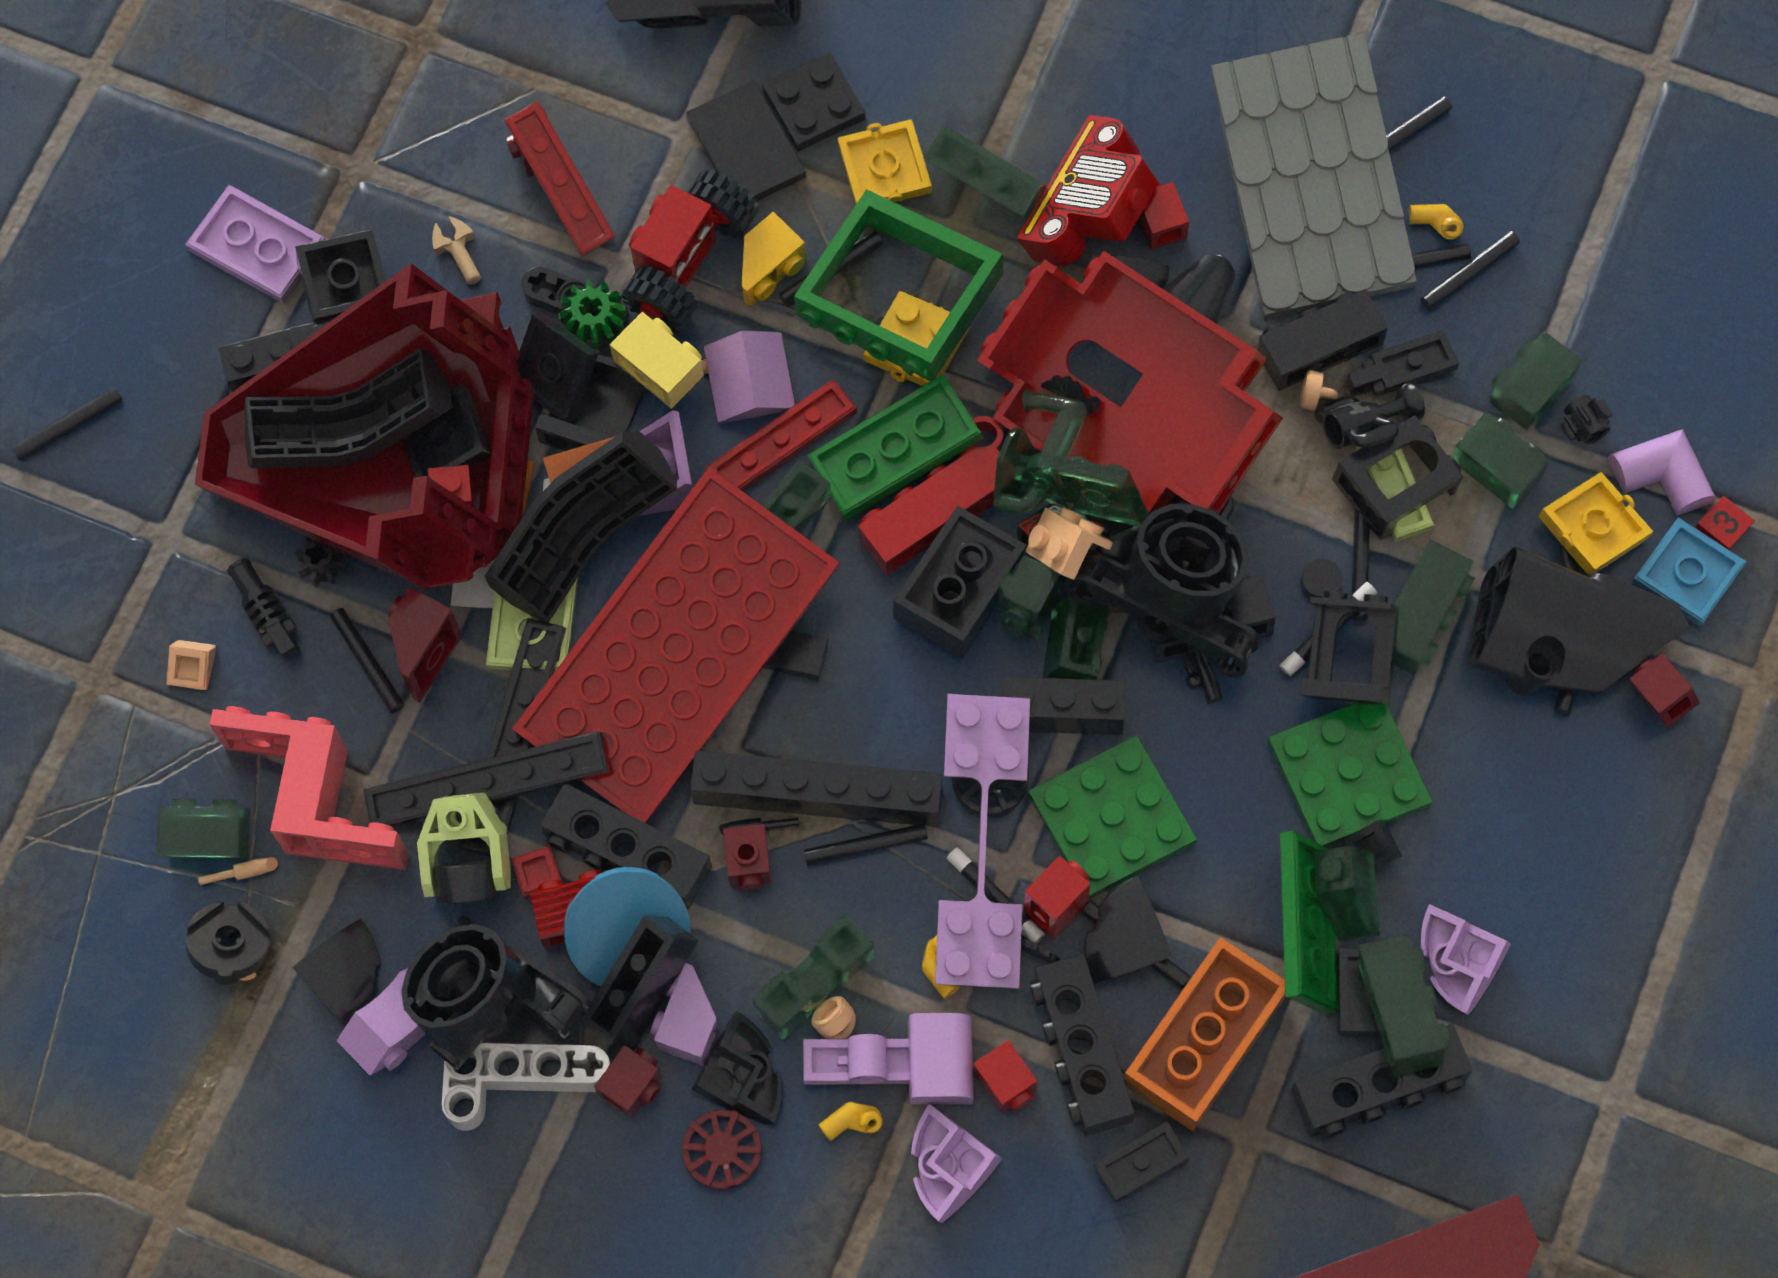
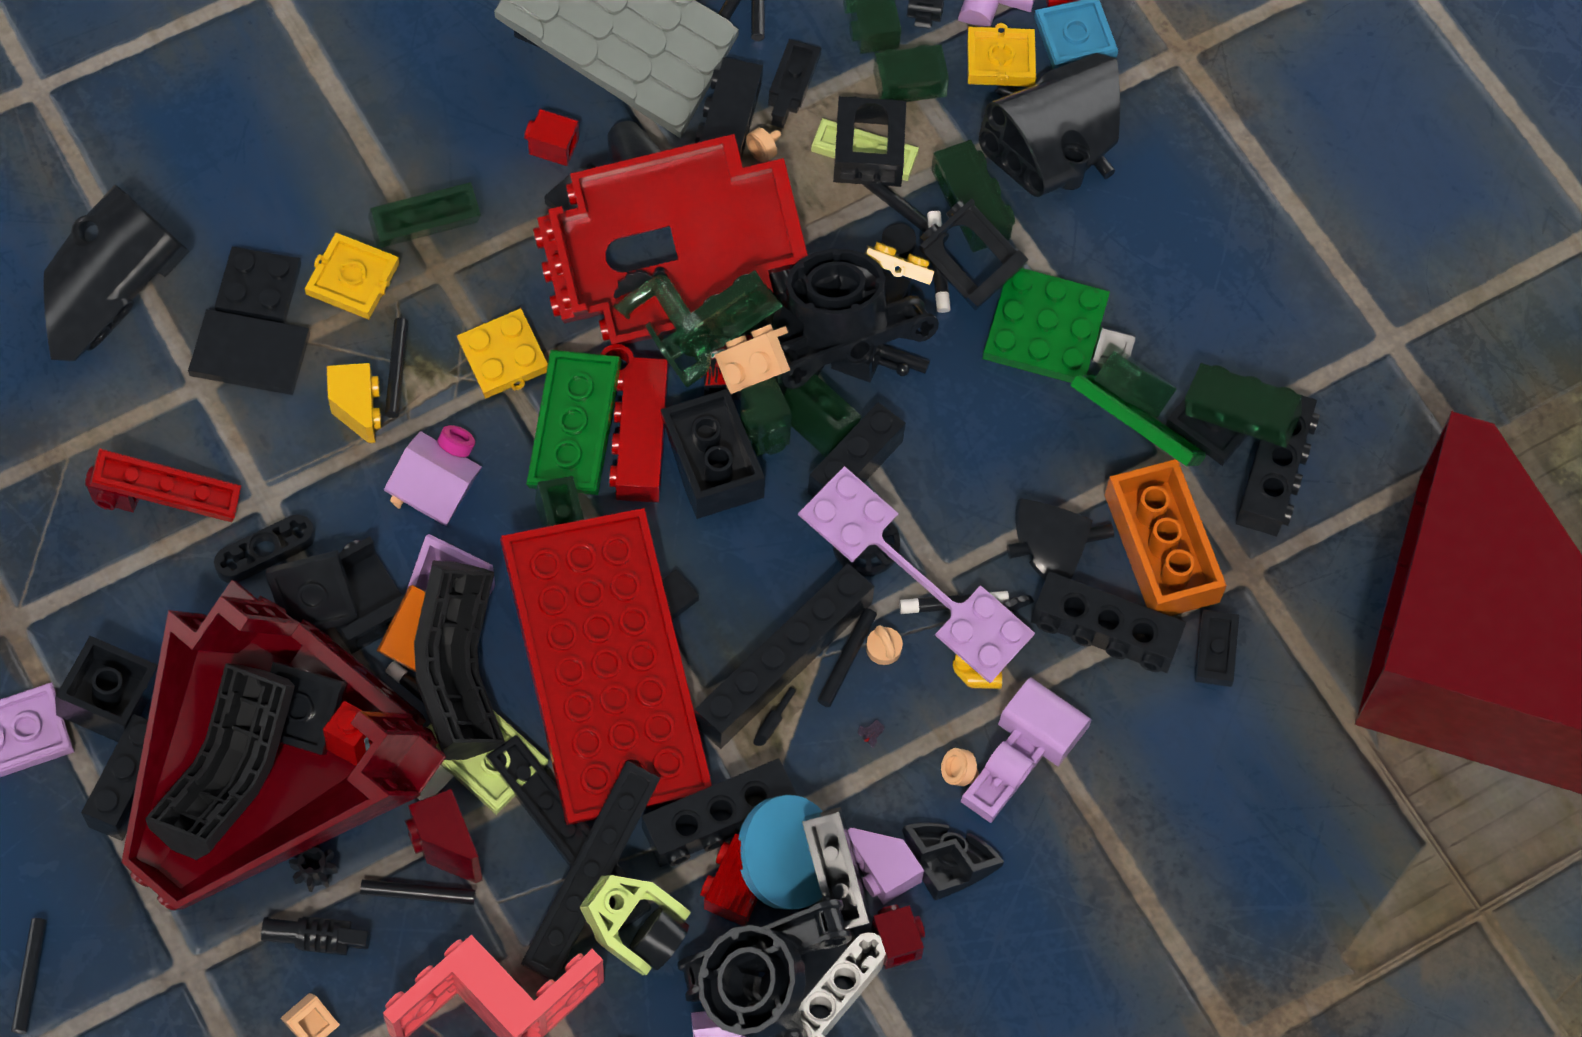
camera: 60 degrees left, 5 degrees down
(457, 248) = (146, 598): tan bar -> none
(535, 869) = (686, 888): red tile -> none
(601, 303) = (282, 534): green gear -> none
(657, 359) = (376, 518): light yellow brick -> none
(678, 240) = (289, 446): brick -> none
(721, 1149) = (994, 912): dark red wheel -> none
(747, 857) = (795, 738): dark red brick -> none
(785, 436) = (497, 490): red tile -> none
(798, 368) = (456, 441): none -> dark pink tile
(810, 918) = (870, 733): none -> clear purple piece
(832, 962) = (921, 755): clear green arch -> none
(853, 1117) = (1039, 808): yellow arm -> none
(902, 867) = (884, 645): none -> light nougat tile
(924, 235) = (439, 285): green window -> none
(949, 1163) = (1121, 770): lavender brick -> none
(1006, 1078) = (1093, 687): red brick -> none
(1057, 897) = (996, 557): red brick -> none
(1092, 194) = (502, 162): brick -> none
(1113, 815) = (958, 489): green plate -> none
(1286, 601) = (912, 267): none -> plate
(1367, 423) = (811, 133): black piece -> none
(1460, 957) = (1227, 347): lavender brick -> none
(1664, 690) = (1148, 103): dark red brick -> none

